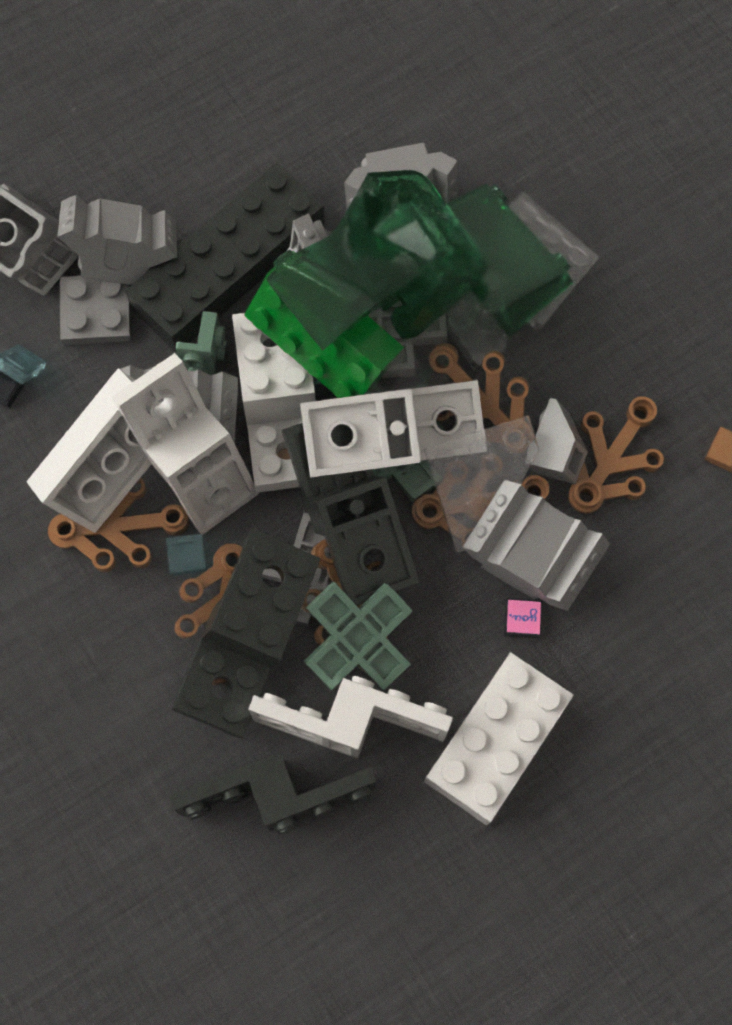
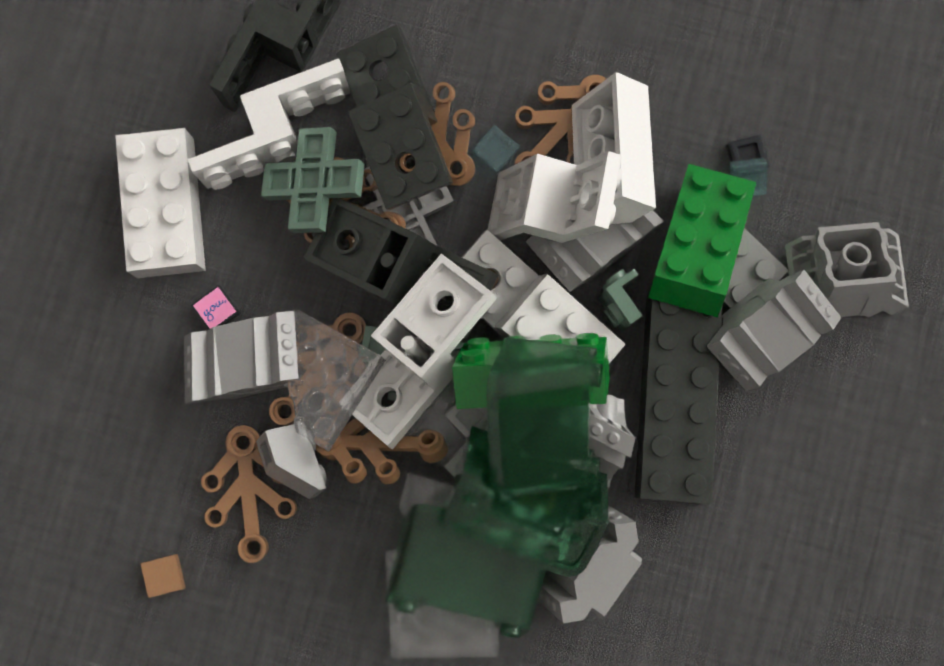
camera: 140 degrees right, 10 degrees up
(102, 333) = (703, 240): none -> green brick

